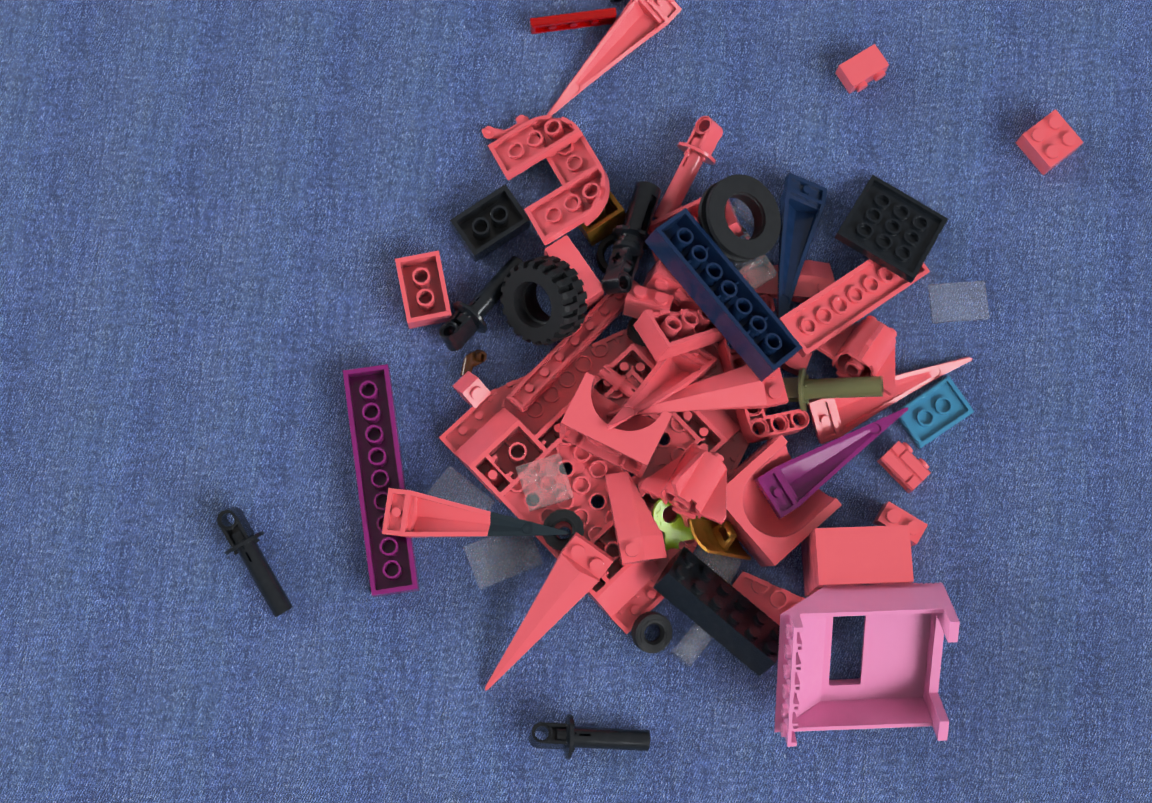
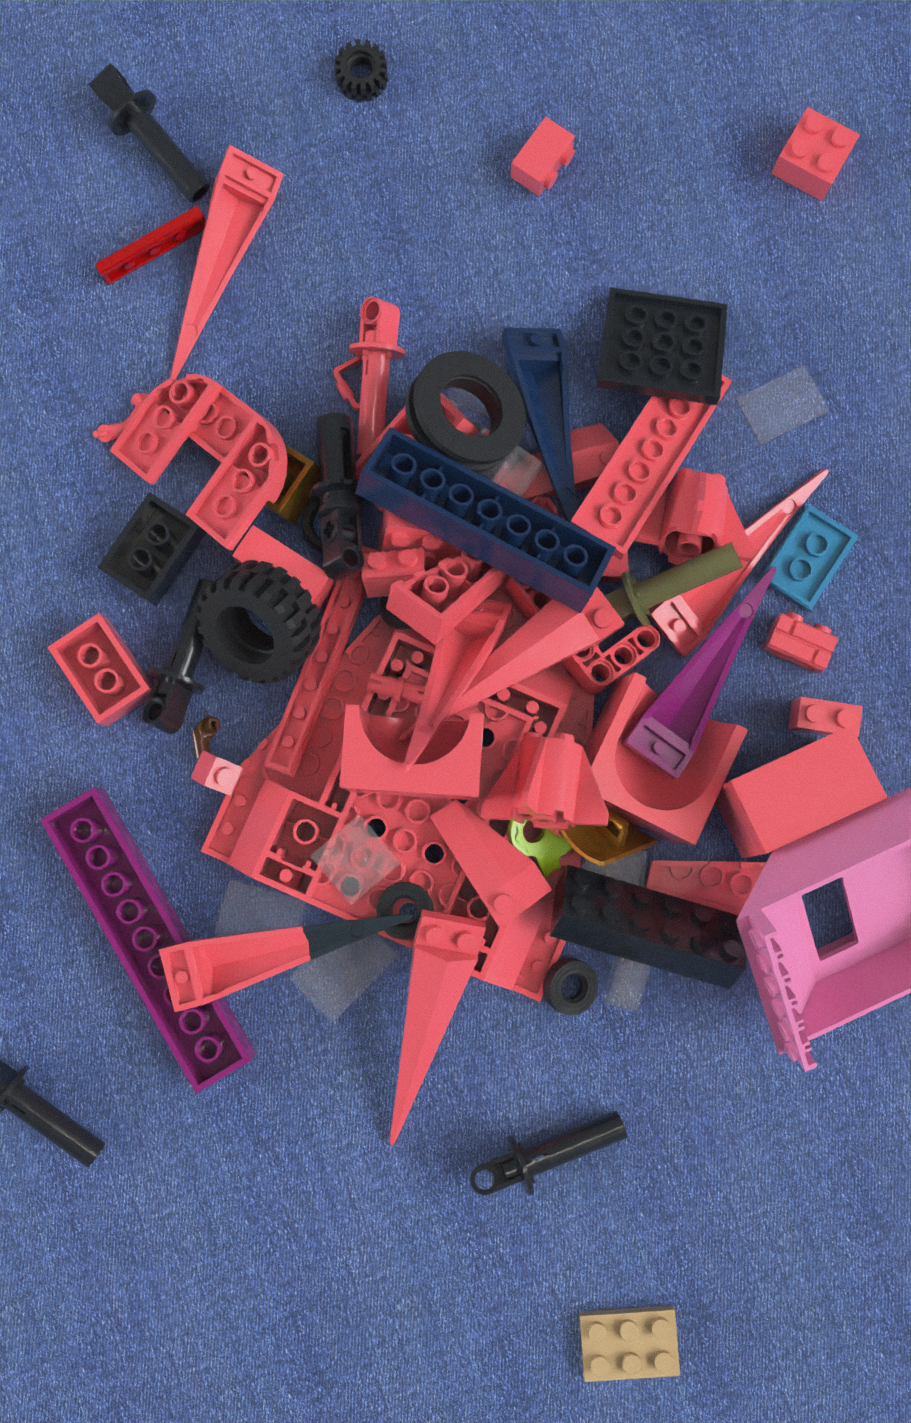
camera: 10 degrees left, 5 degrees up
(663, 170) = (342, 385): none -> coral piece

